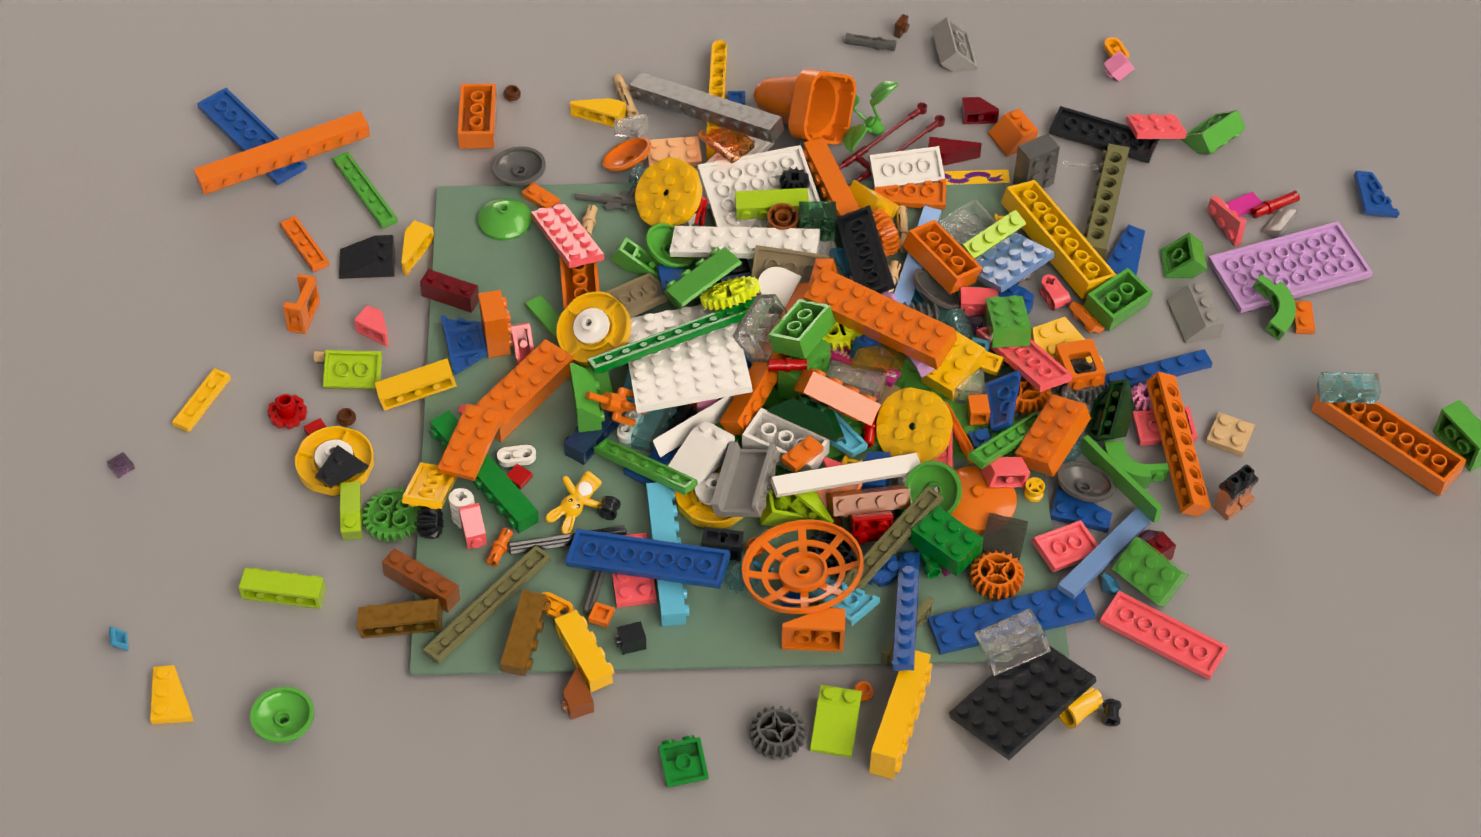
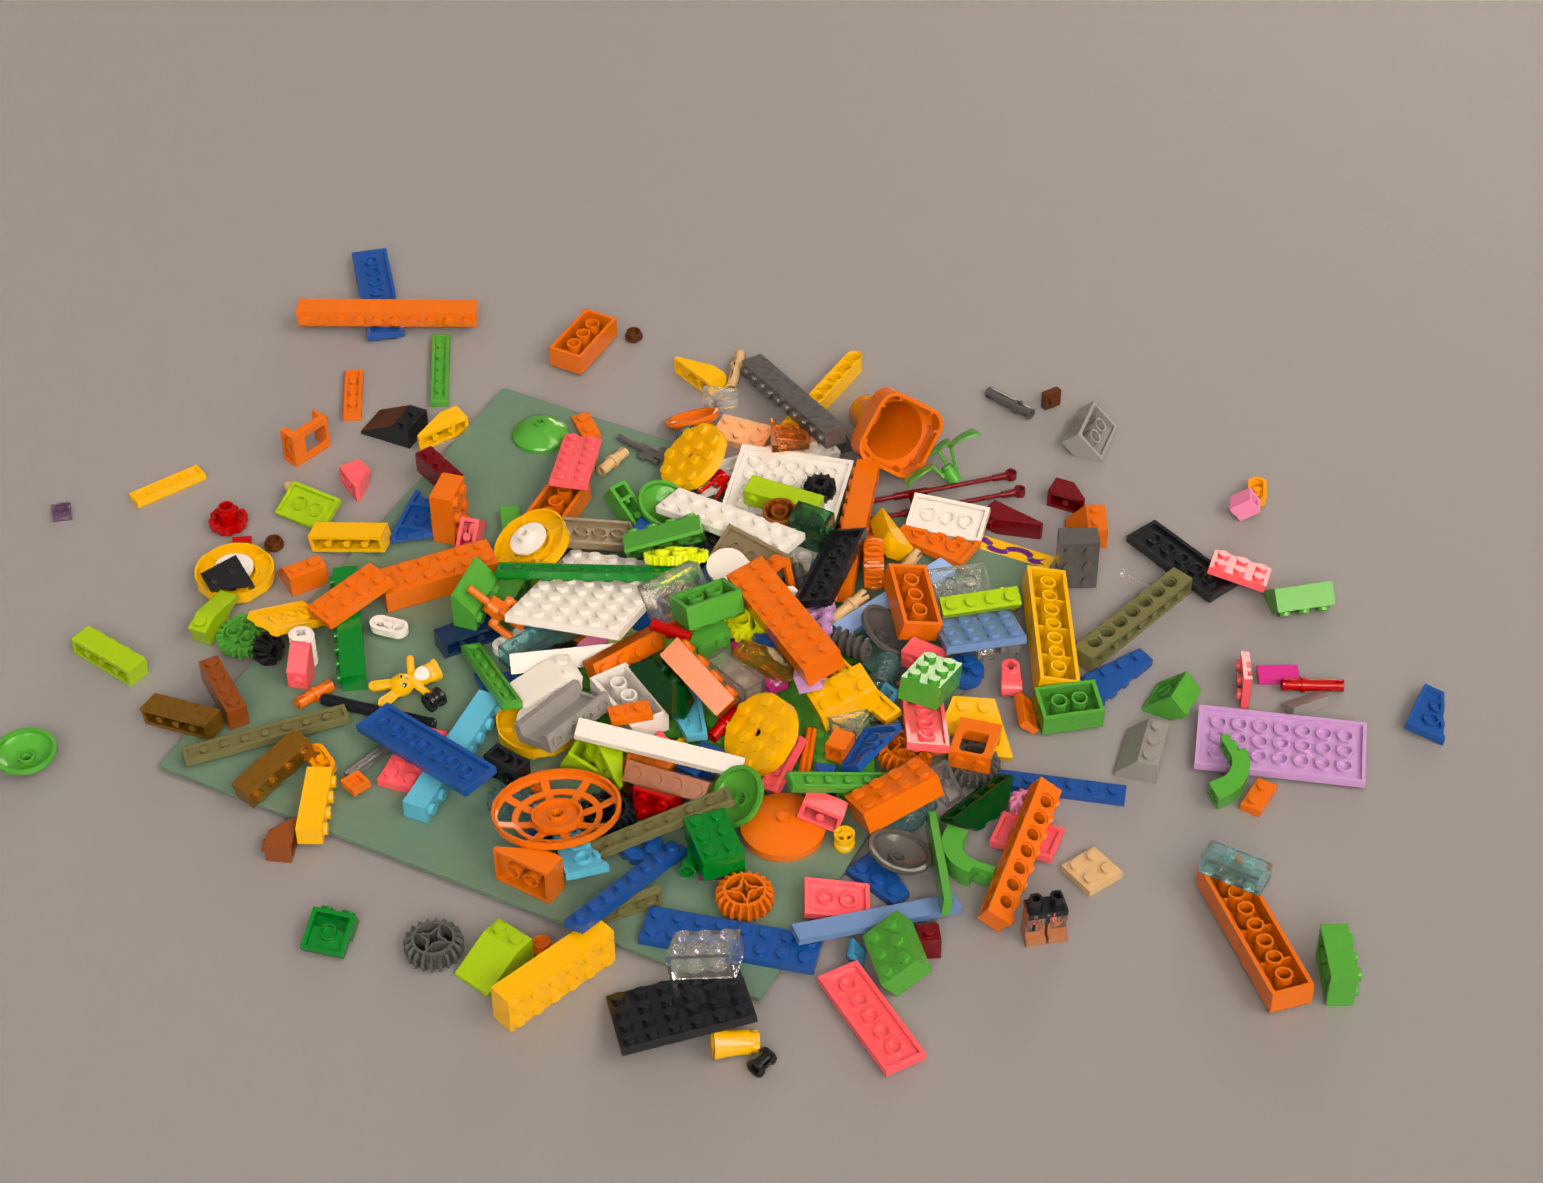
camera: 30 degrees right, 10 degrees down
(397, 436) = (304, 575): none -> orange slope
(519, 166) = (585, 394): dark grey dish -> none
(520, 476) = (378, 645): red tile -> none
(630, 638) = (365, 811): black brick -> none
(737, 96) = (839, 409): blue tile -> none
(1004, 534) = (780, 865): clear smoke tile -> none

